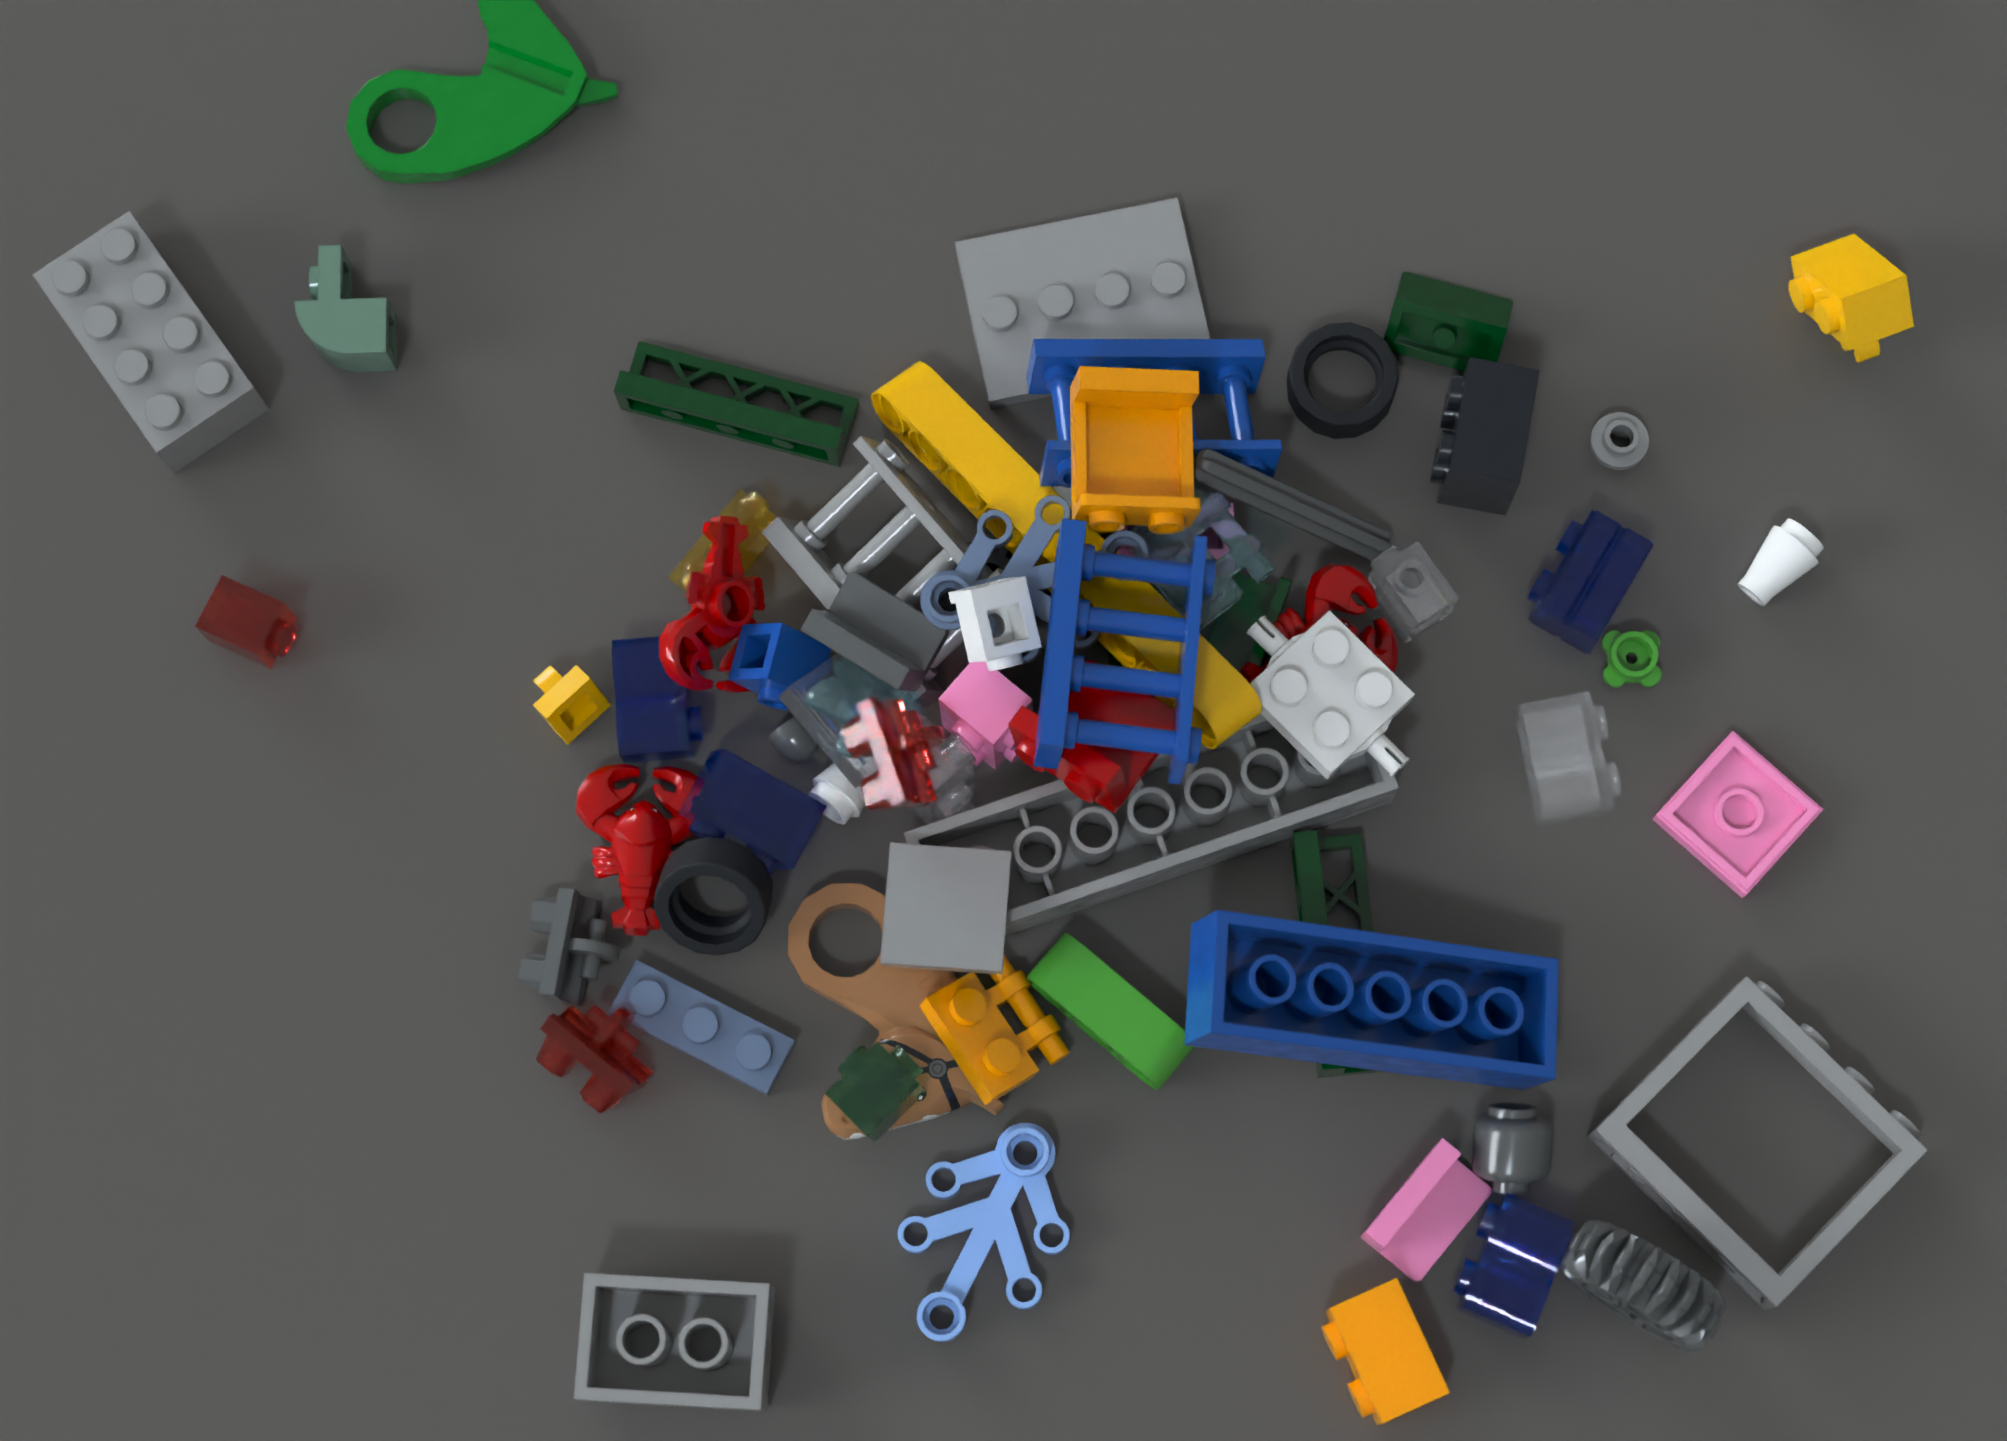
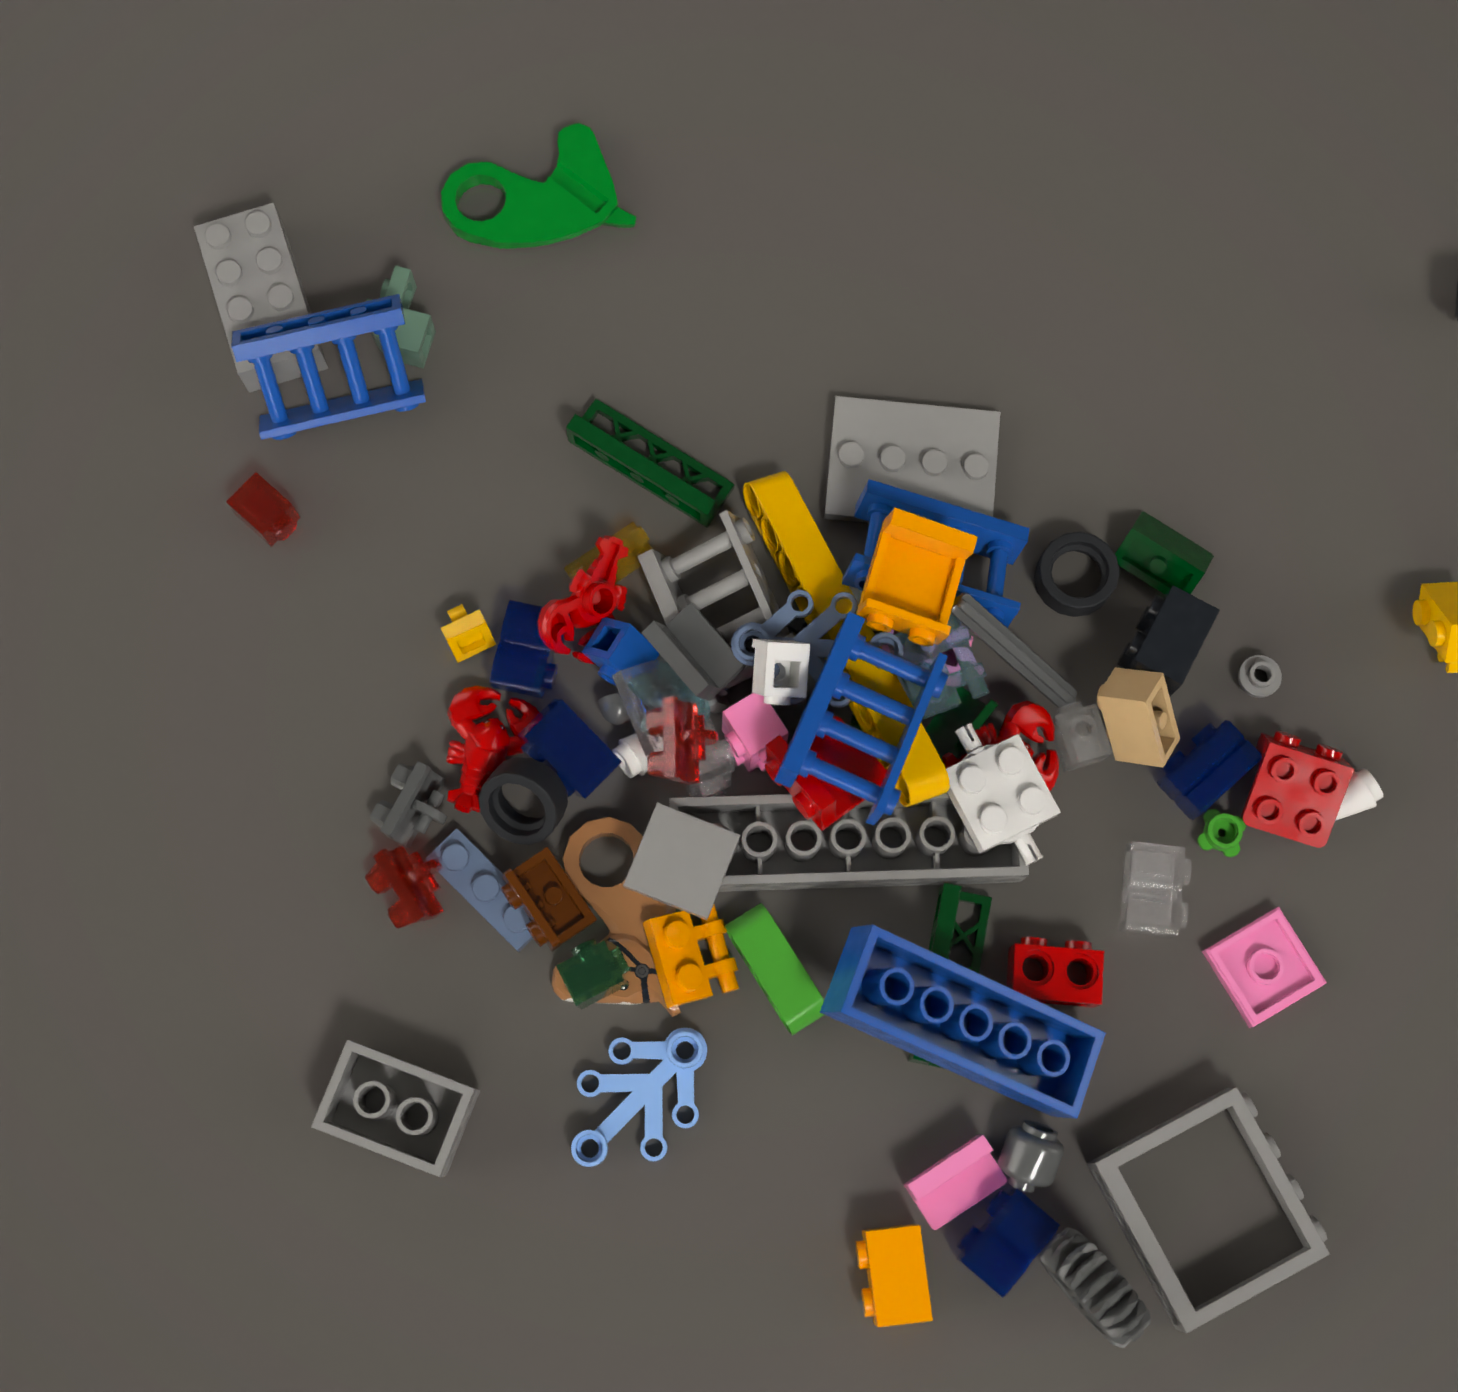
camera: 10 degrees right, 0 degrees up
(274, 350) = (340, 327): none -> blue fence
(786, 1014) = (548, 899): none -> reddish brown bracket
(1476, 921) = (1055, 985): none -> red brick
(1478, 541) = (1138, 716): none -> tan brick
(1710, 572) = (1297, 789): none -> red bracket

